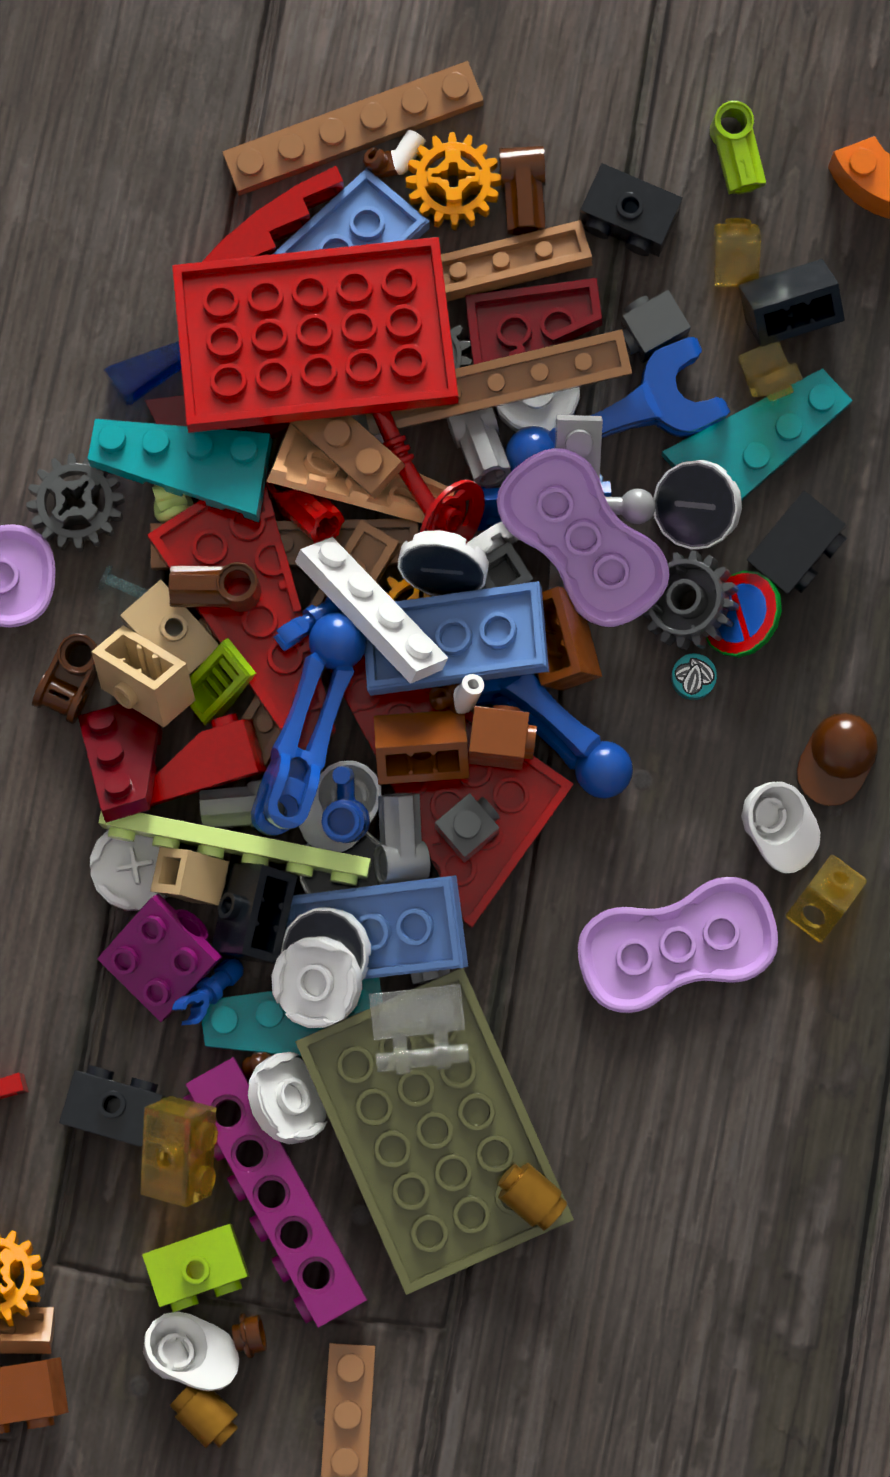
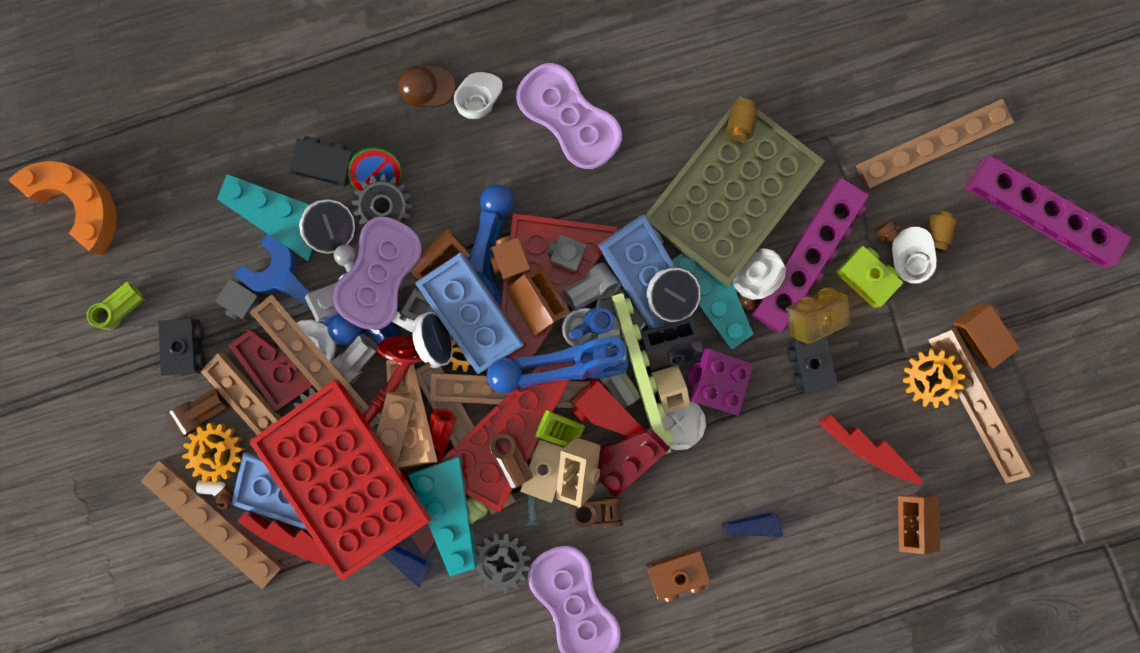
camera: 120 degrees left, 5 degrees up
(209, 990) = (725, 346): blue piece -> none
(300, 627) = (506, 399): blue piece -> none
(317, 982) = (692, 290): white tile -> none
(371, 610) = (478, 365): white plate -> none
(418, 1013) = (681, 229): clear plate -> none
(457, 697) = (501, 294): arm -> none
(693, 676) = (421, 182): tile -> none
(736, 252) = (175, 277): clear yellow bracket -> none
(769, 372) = (234, 225): clear yellow bracket -> none
(791, 302) = (188, 232): black brick -> none
(831, 892) = (499, 51): clear yellow bracket -> none

